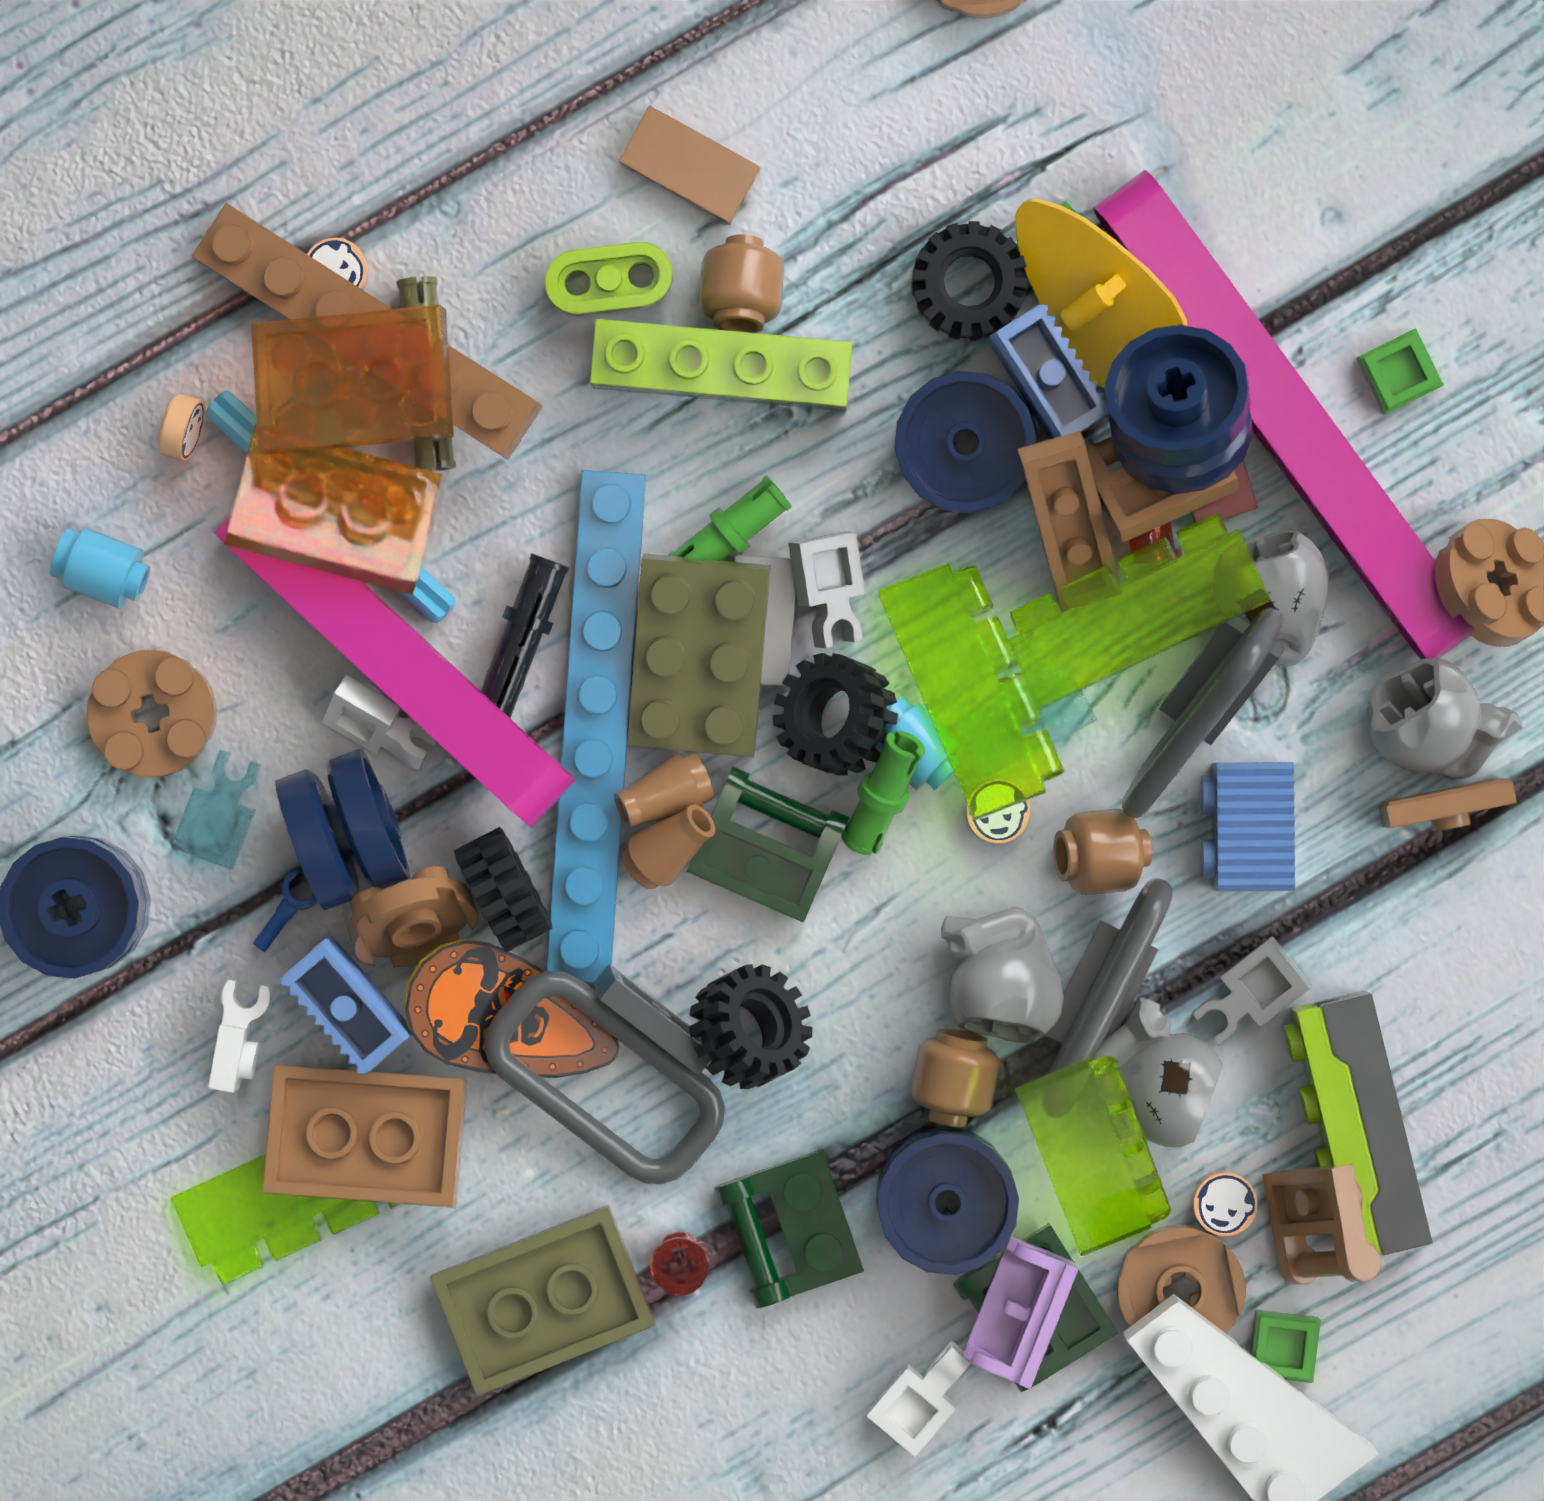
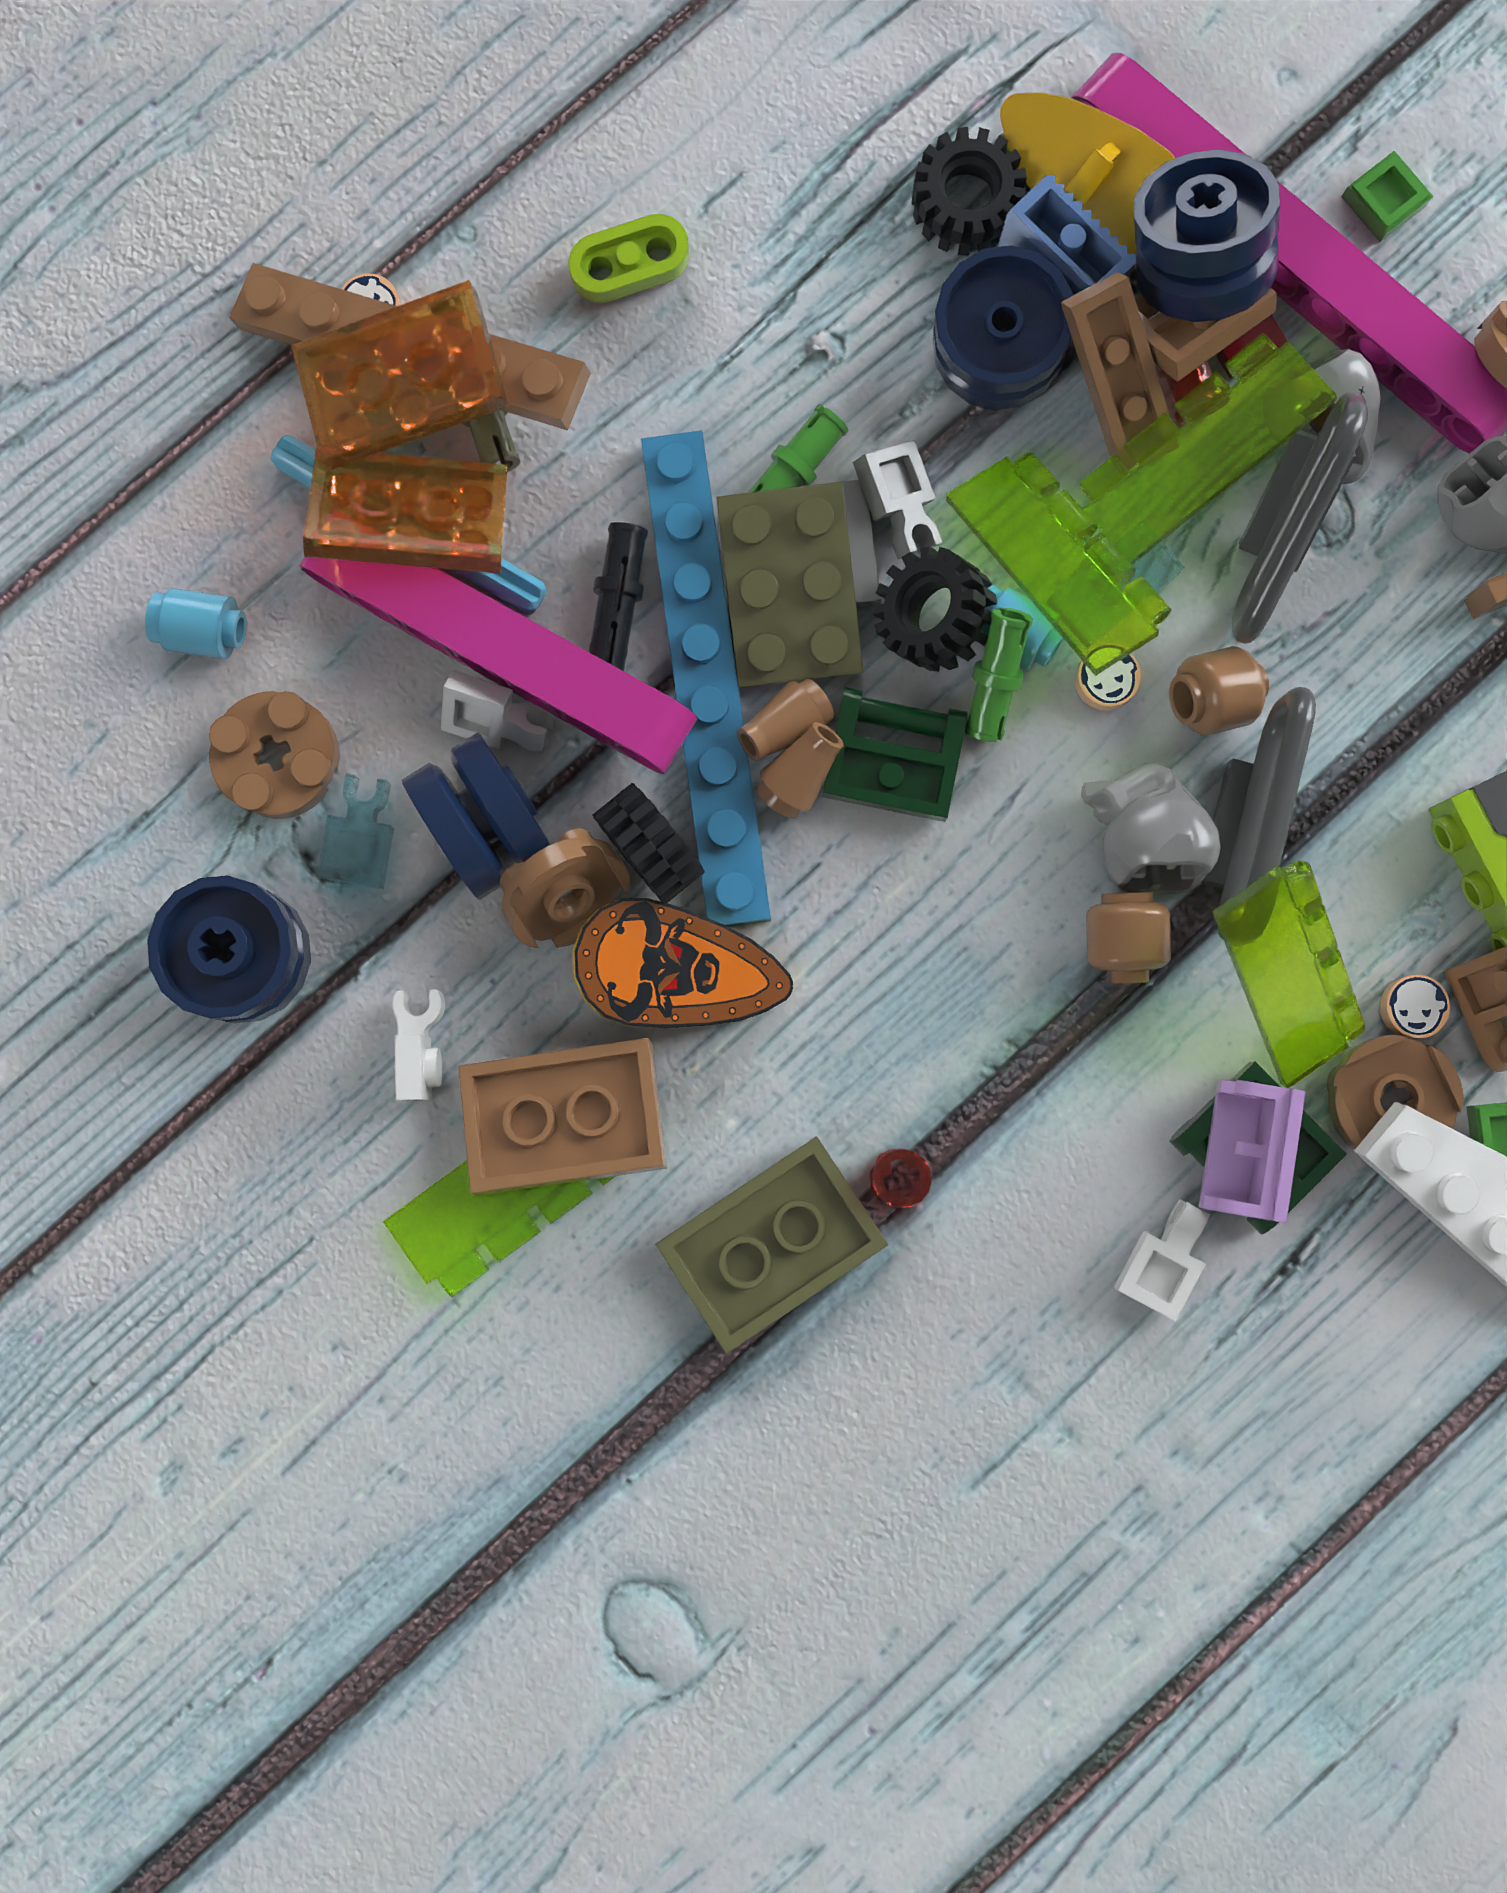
camera: 10 degrees left, 5 degrees down
(181, 427) = (249, 476): light nougat tile -> none
(284, 912) = (442, 914): blue hand -> none
(347, 1005) = (517, 990): medium blue brick -> none
(641, 1026) = (814, 953): dark grey bar -> none
(689, 165) = (682, 144): medium nougat tile -> none
(721, 365) = (754, 310): lime piece -> none
(726, 1039) = (890, 926): black tyre -> none
(741, 284) = (755, 235): medium nougat head -> none
(810, 1222) = (1016, 1111): dark green plate -> none
(938, 1162) = (1186, 1042): dark blue wheel -> none
(1164, 1074) = (1353, 887): light grey piece -> none
(1251, 826) = (1355, 637): medium blue brick -> none
(1259, 985) = (1399, 788): light grey plate -> none

